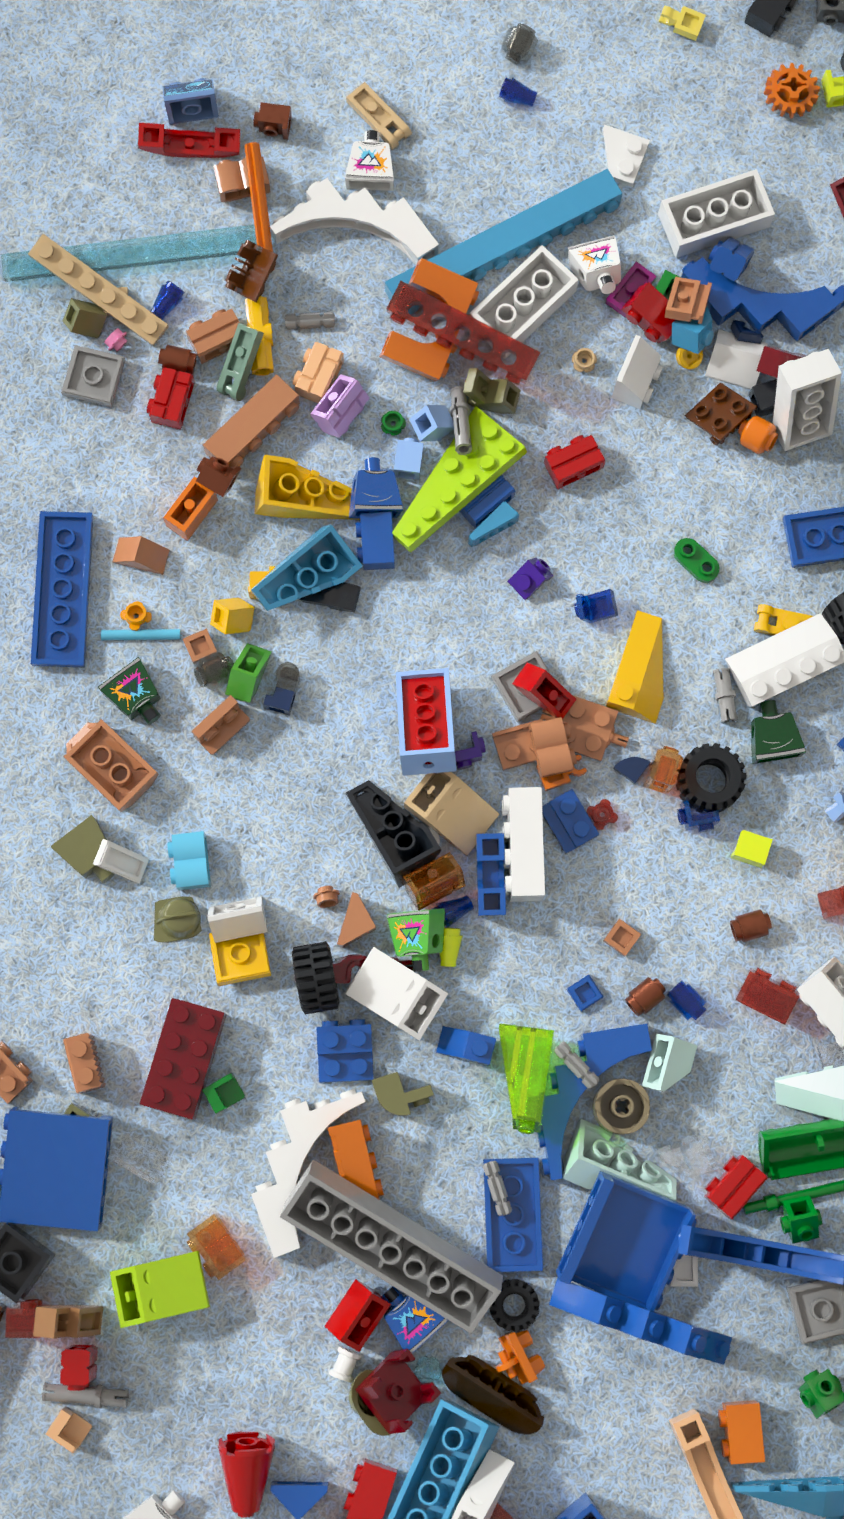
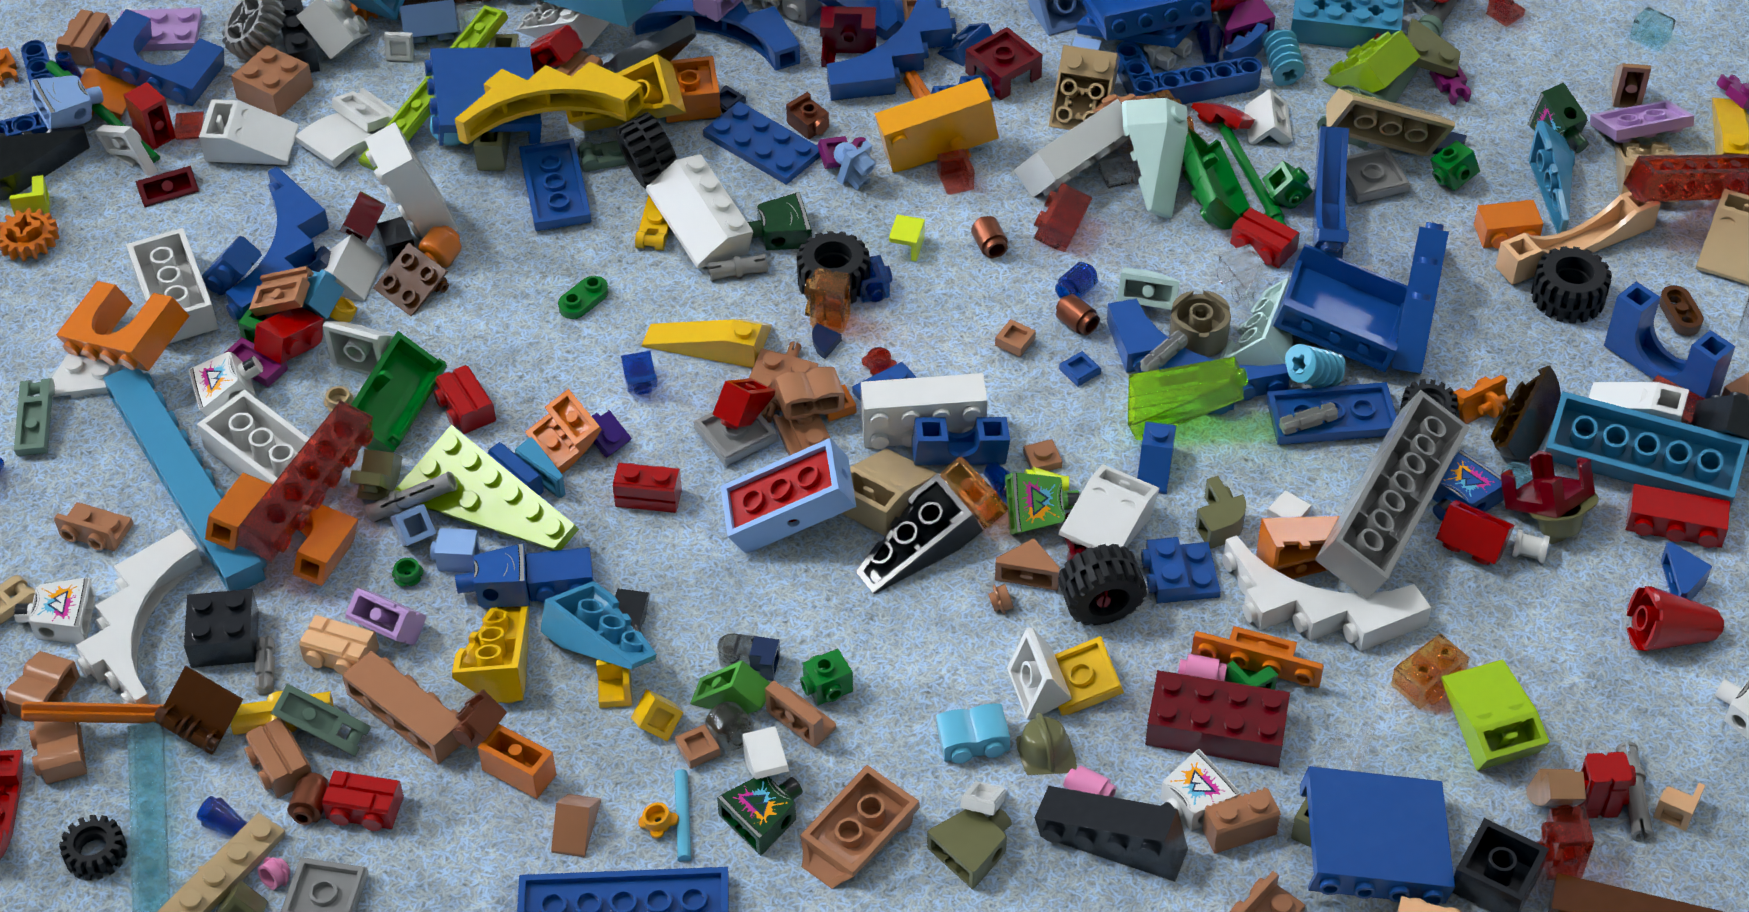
camera: 90 degrees left, 30 degrees down
(82, 958) = (1115, 829): none -> black wedge
(114, 1031) = (1193, 787): none -> white torso
(129, 947) = (1089, 781): none -> bright pink brick
(149, 198) = (84, 833): none -> black tyre
(169, 694) = (764, 753): none -> white slope
(234, 1054) = (1202, 667): none -> bright pink brick
(250, 1105) = (1256, 652): none -> orange bracket
(252, 756) = (827, 677): none -> green brick
(298, 159) = (43, 680): none -> nougat brick
(341, 284) = (221, 628): none -> black brick
(406, 1156) = (1288, 506): none -> white tile
(459, 180) = (93, 526): none -> nougat bracket
(463, 610) = (647, 487): none -> red brick
(482, 948) = (1043, 455): none -> nougat plate
(526, 541) = (565, 431): none -> orange slope
(555, 1204) = (1315, 366): none -> medium azure piece
(576, 121) = (33, 417): none -> sand green plate
(578, 403) = (397, 391): none -> green container
(661, 152) = (135, 345): none -> orange arch
(677, 1486) = (1571, 284): none -> black tyre

